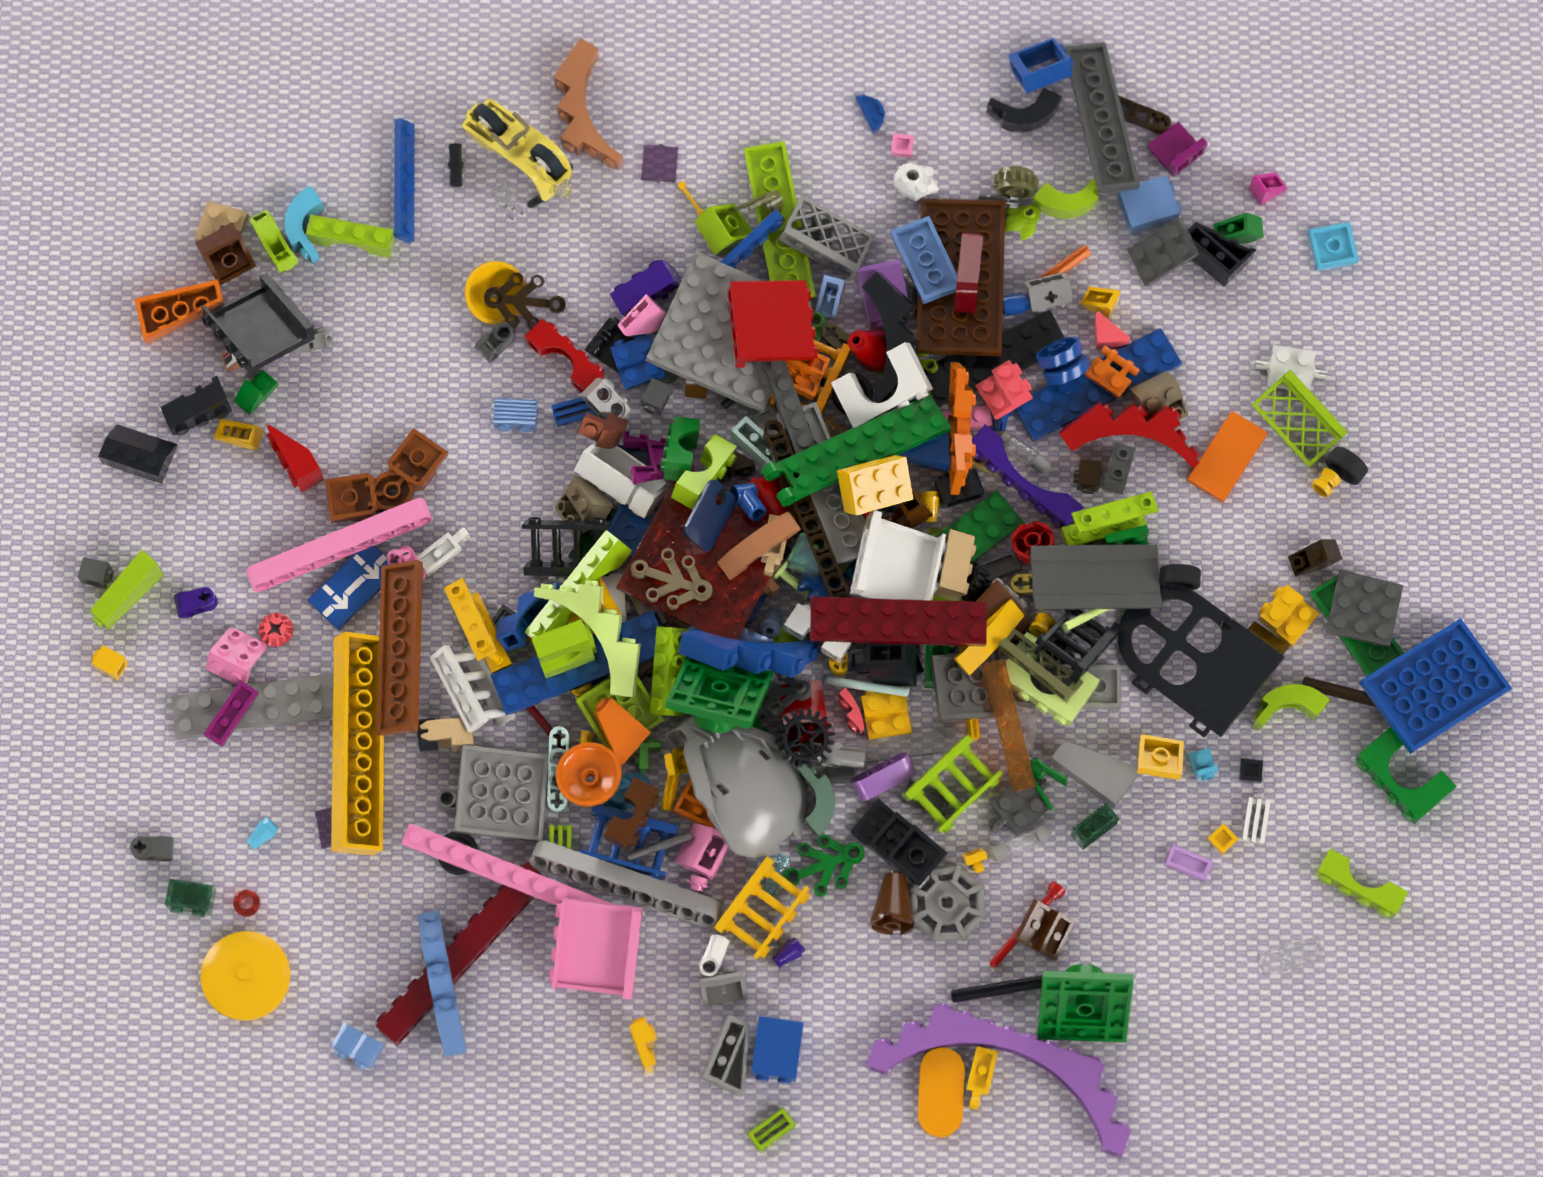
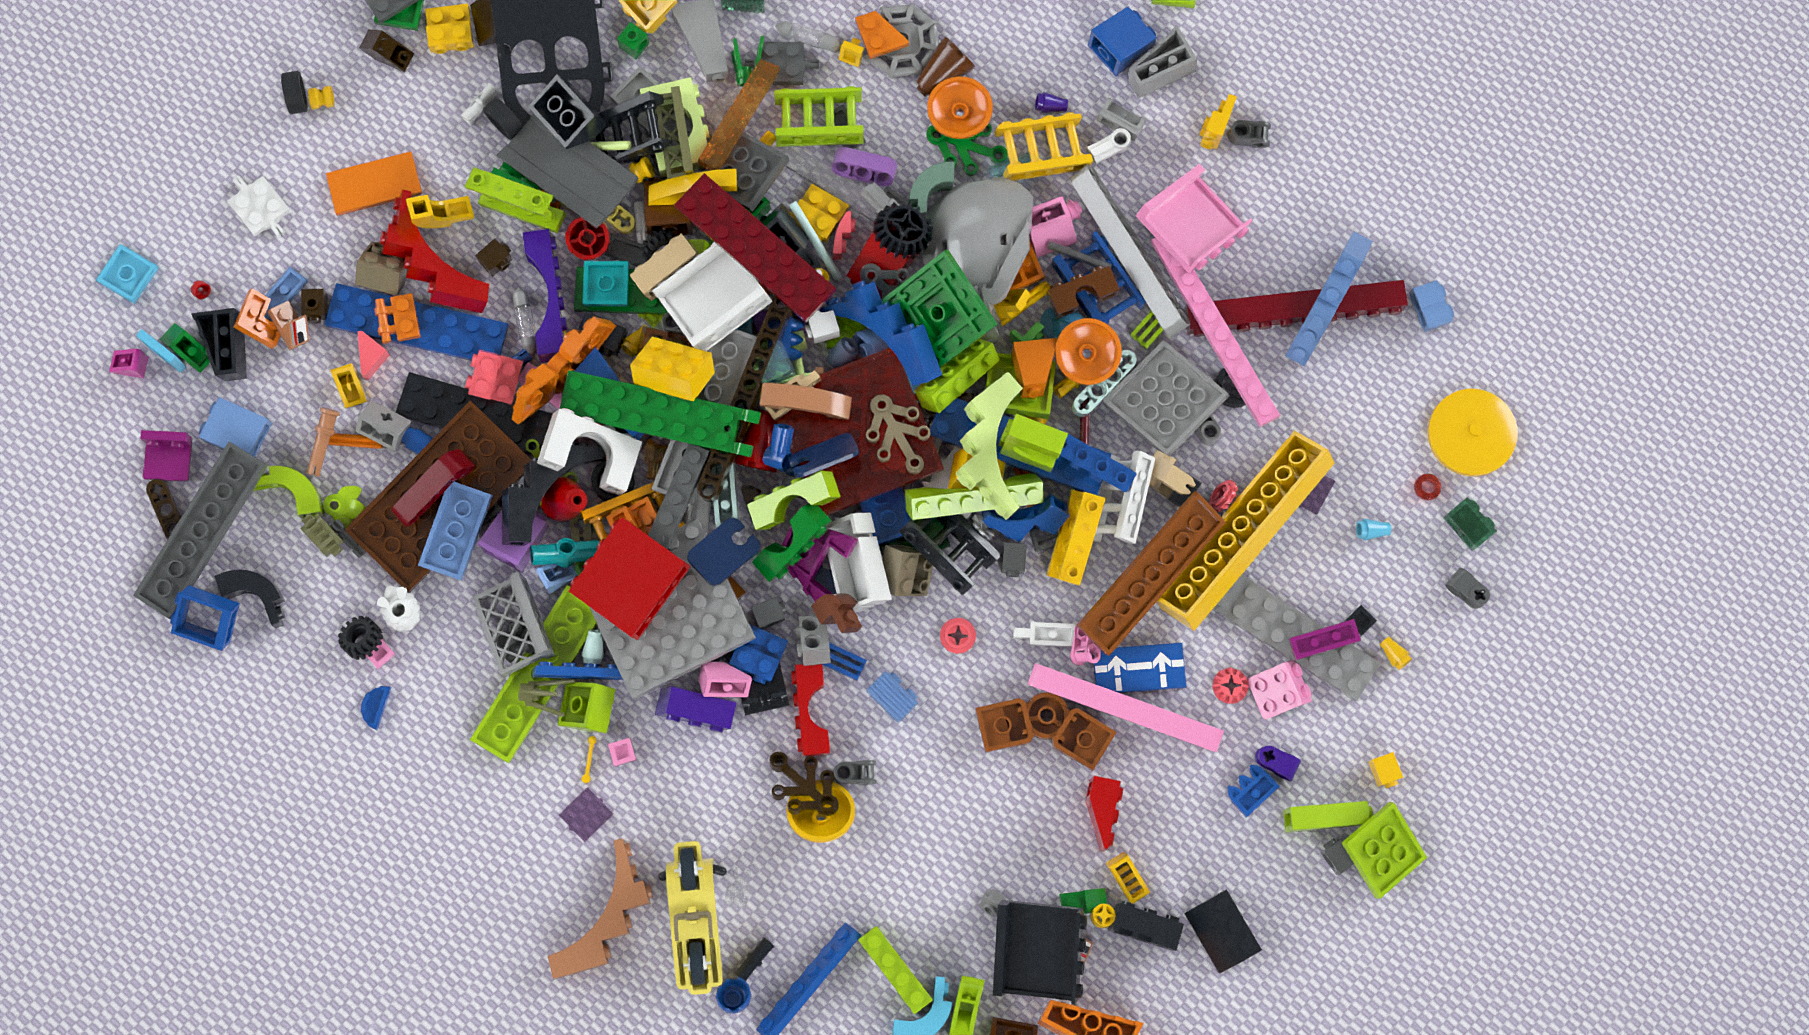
camera: 145 degrees left, 5 degrees up
(63, 599) = (1384, 850): none -> lime plate
(170, 755) = (1395, 653): none -> yellow cone
(195, 566) = (1253, 791): none -> blue plate
(216, 756) = (1363, 619): none -> black plate
(233, 379) = (1105, 913): none -> yellow wheel
(396, 758) = (1223, 495): none -> coral gear
(448, 129) = (733, 995): none -> blue hair
(507, 487) = (965, 628): none -> coral gear
(511, 682) = (1097, 464): none -> blue bracket
(512, 583) = (1013, 559): none -> dark grey brick
(612, 1065) = (1254, 133): none -> dark grey piece
(672, 221) = (622, 752): none -> bright pink plate
(723, 393) = (717, 554): none -> dark blue piece
(755, 267) = (593, 647): none -> light aqua cone
(845, 299) = (563, 552): none -> teal piece
(860, 867) = (955, 96): none -> orange dish
(898, 842) = (897, 111): black slope -> none
(931, 136) = (353, 631): none -> black tyre
(966, 886) = (879, 35): none -> orange wing
(988, 521) = (606, 283): none -> teal plate
(1062, 361) = (428, 356): blue wheel -> none
(1084, 252) = (324, 431): none -> nougat pin
(1118, 468) = (465, 242): dark grey brick -> none
(1133, 614) = (567, 113): none -> black slope
(1144, 721) = (633, 40): none -> green brick
(1159, 467) = (439, 214): none -> yellow arch
(1163, 252) = (263, 376): dark grey plate -> none
(1180, 333) = (314, 305): none -> dark brown brick
(1183, 304) = (291, 328): none -> nougat slope
(1209, 281) = (252, 320): none -> orange plate
(1210, 579) = (479, 103): none -> white pin
(1212, 319) = (285, 289): none -> medium blue tile
(1257, 206) = (161, 351): none -> medium azure tile
(1271, 277) = (205, 291): none -> red hinge
(1315, 408) = (272, 160): lime fence -> none

